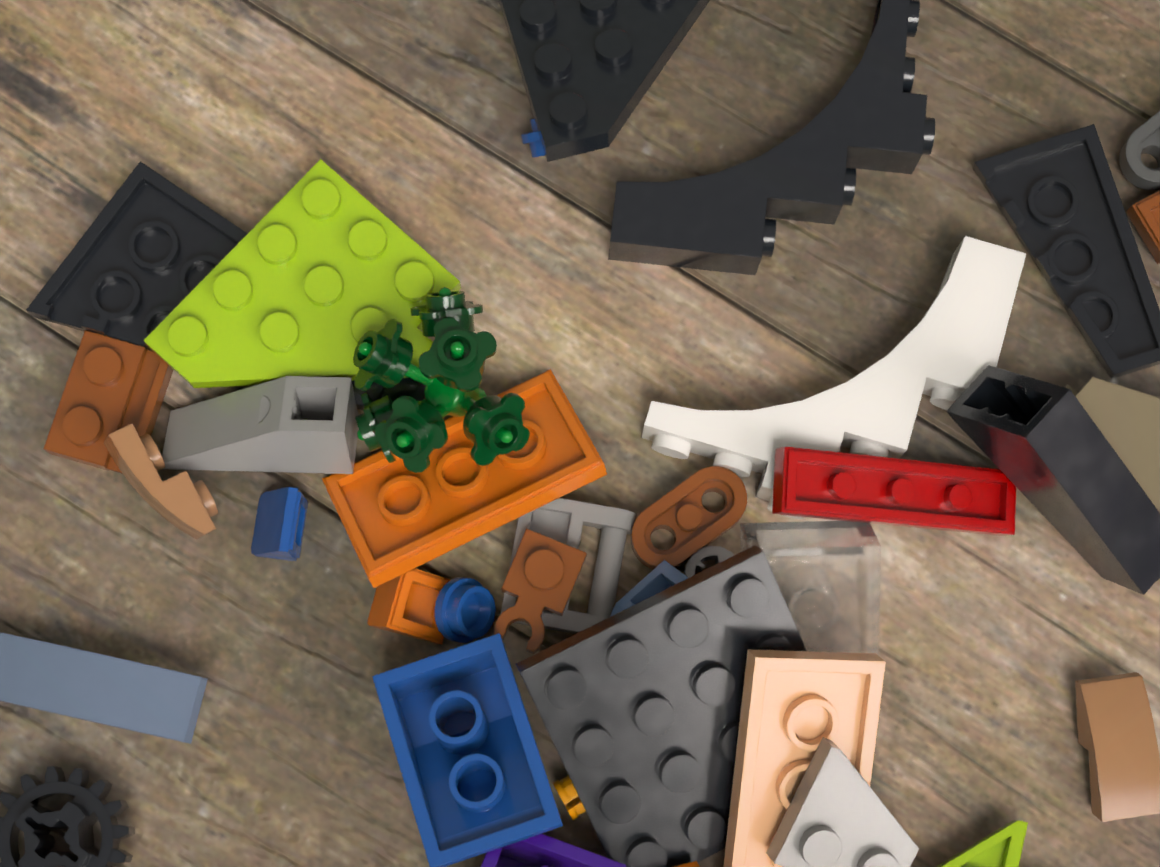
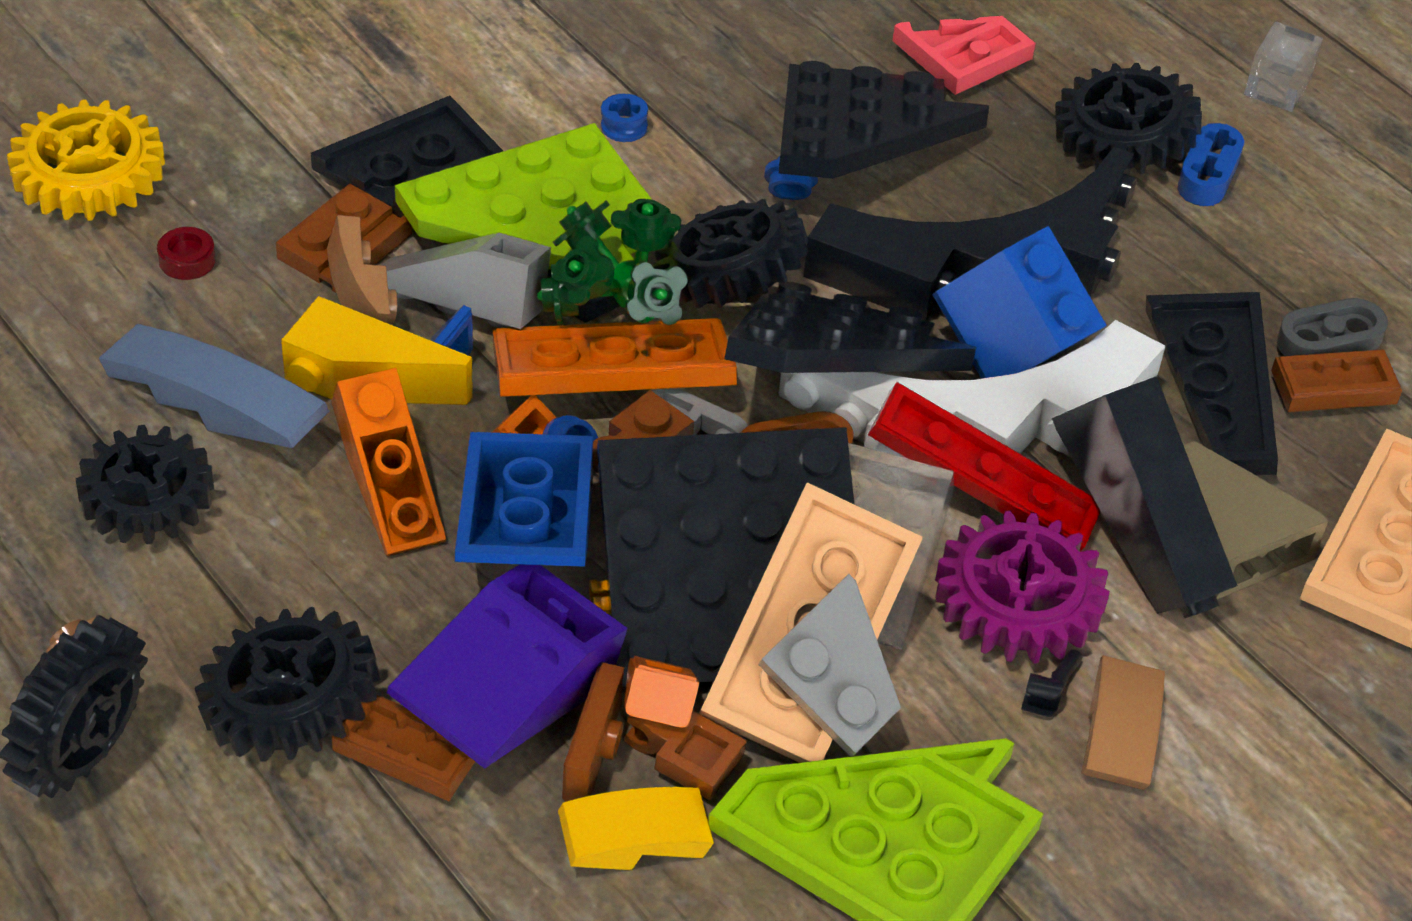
camera: 20 degrees right, 30 degrees down
(201, 582) = (341, 344): none -> yellow slope
(291, 711) = (387, 461): none -> orange slope
(325, 118) = (621, 128): none -> blue bush
(532, 255) = (735, 252): none -> black gear
(686, 381) = (817, 334): none -> black wing
(864, 262) = (1020, 307): none -> blue slope
(973, 644) = (1059, 596): none -> magenta gear
(1035, 734) = (1044, 693): none -> black hand

